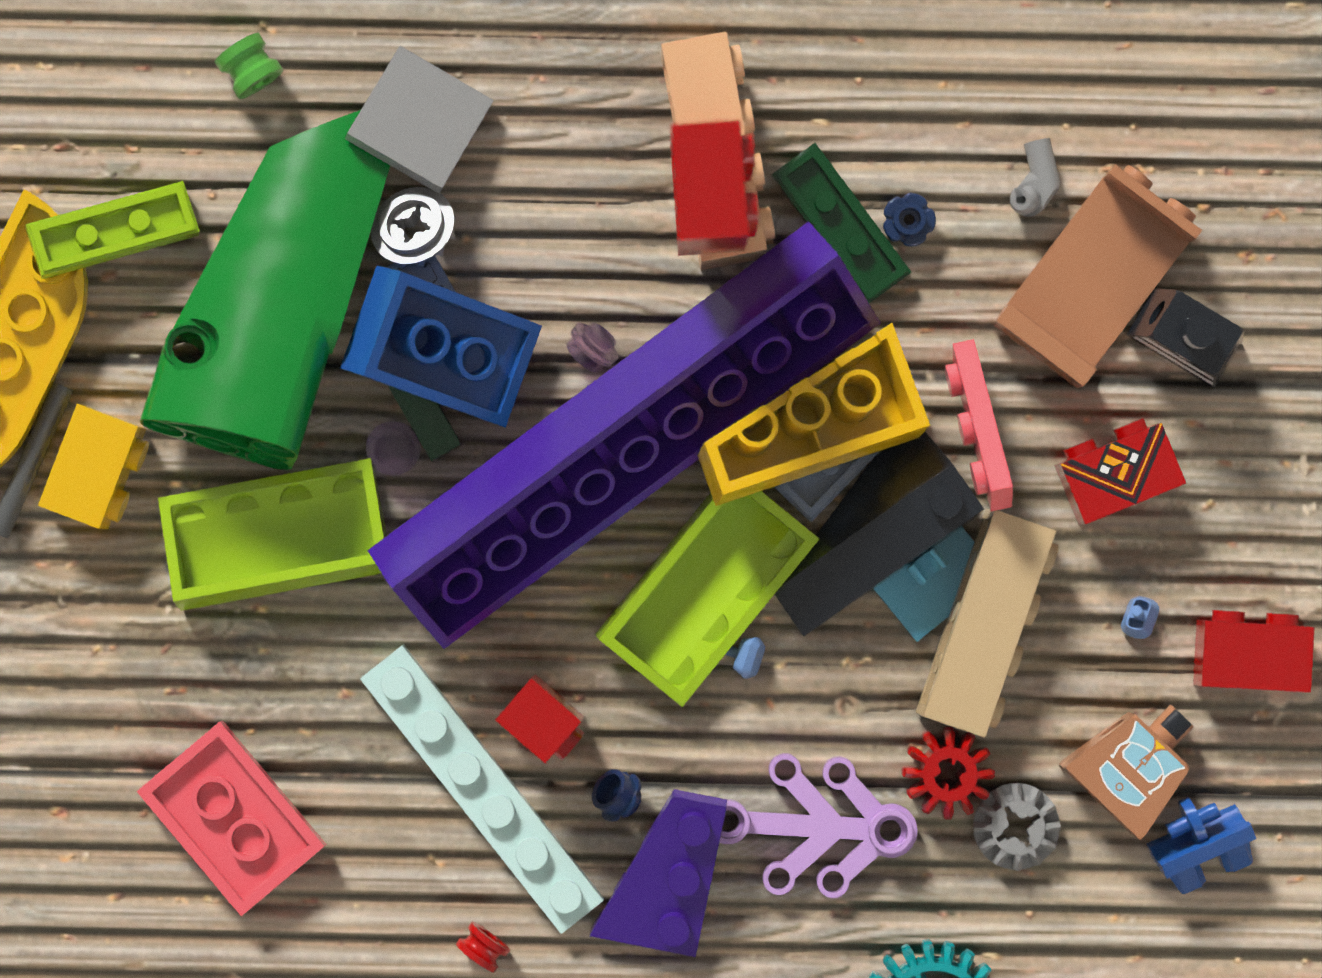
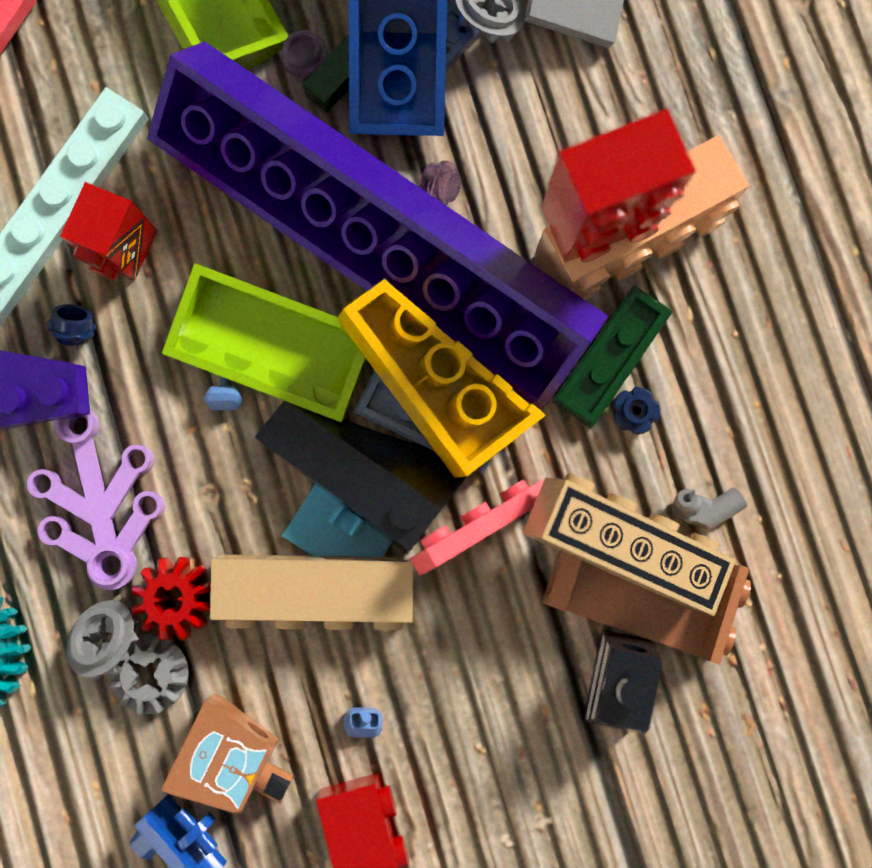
camera: 65 degrees right, 5 degrees down
(948, 867) = (96, 624): none -> light grey gear
(1053, 282) = (628, 544): none -> tan brick
(1119, 472) = (482, 663): brick -> none

